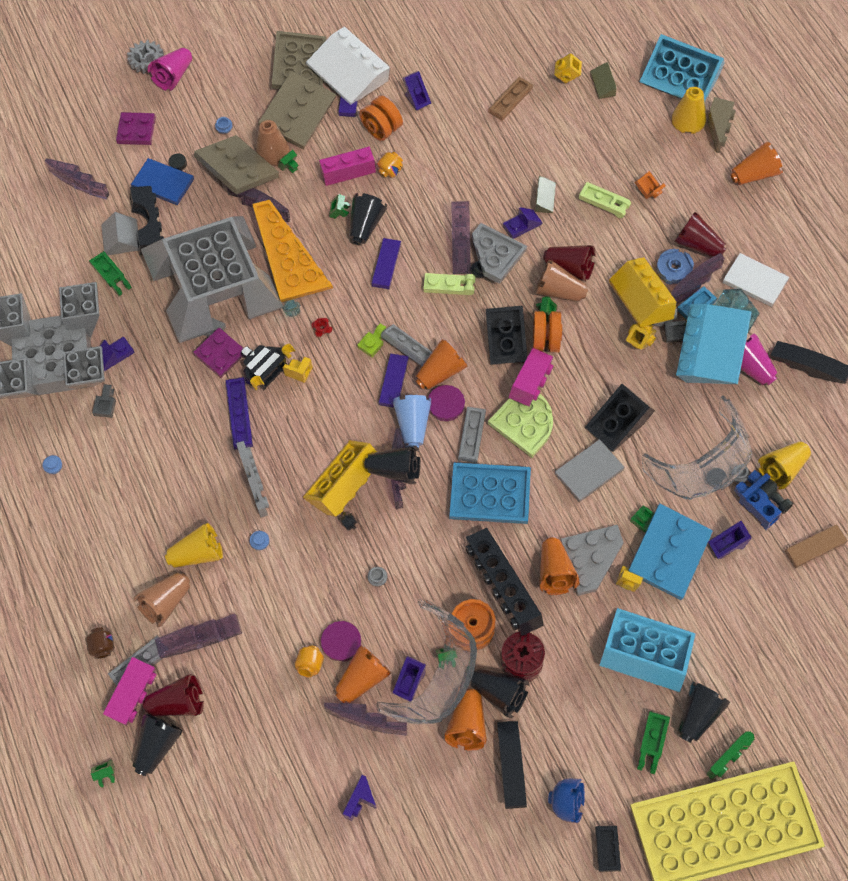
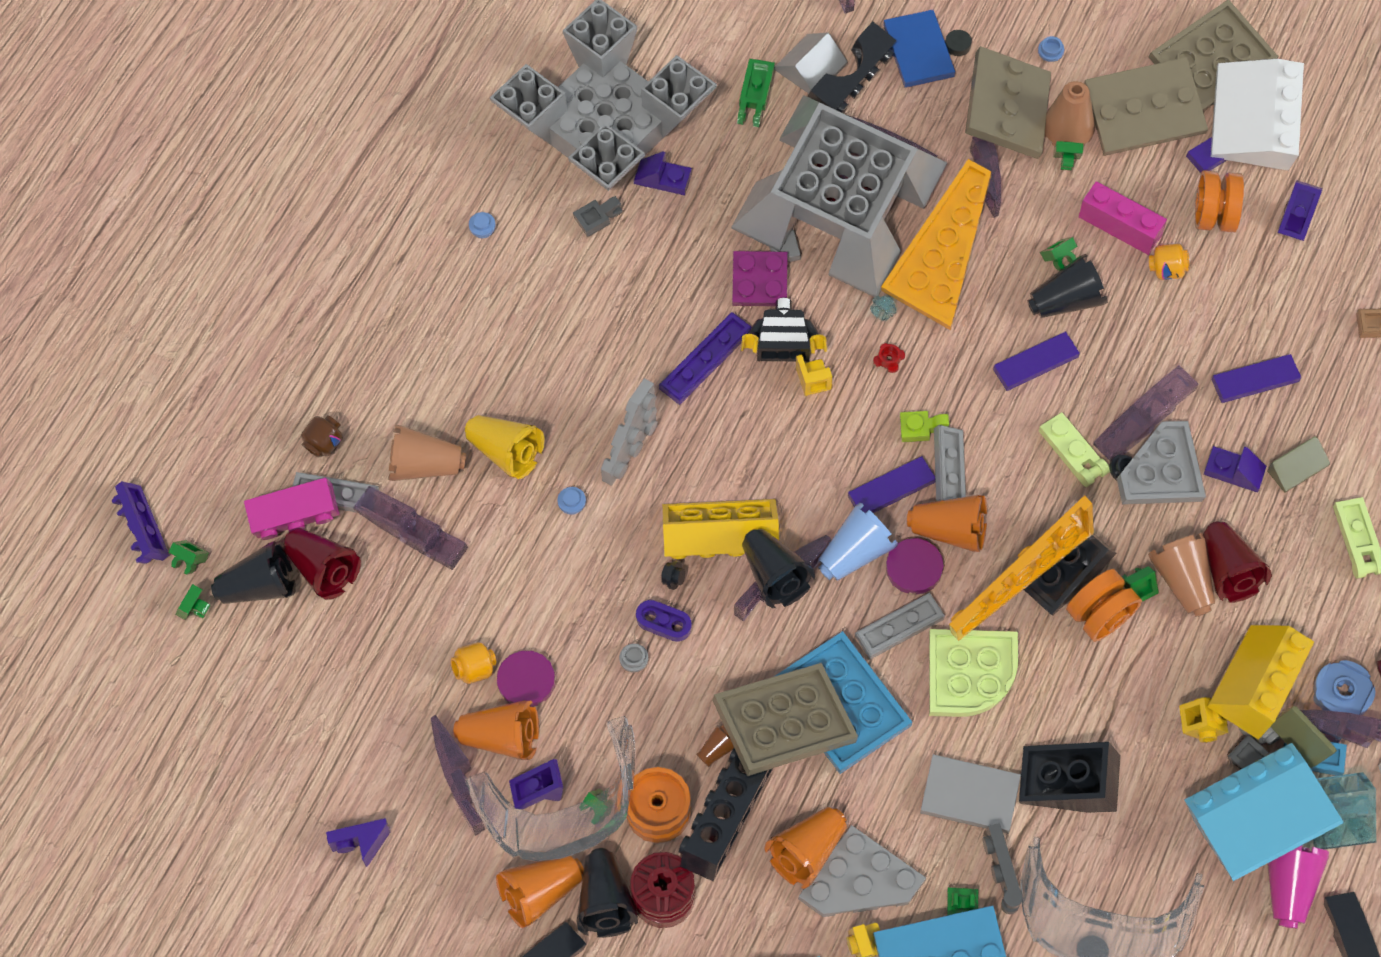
camera: 50 degrees right, 0 degrees up
(57, 785) = (140, 522): none -> dark purple plate
(136, 791) = (193, 604): none -> green tile
(369, 544) = (665, 619): none -> dark purple plate
(462, 567) = (716, 746): none -> dark orange cone
(481, 524) = (784, 719): none -> dark tan plate
(484, 178) = (1256, 378): none -> dark purple tile
(501, 347) = (1032, 562): none -> light orange wing
(531, 377) = (1027, 633): dark pink brick -> none
(642, 485) = (1002, 870): none -> dark grey plate
(688, 296) = (1308, 740): none -> olive slope

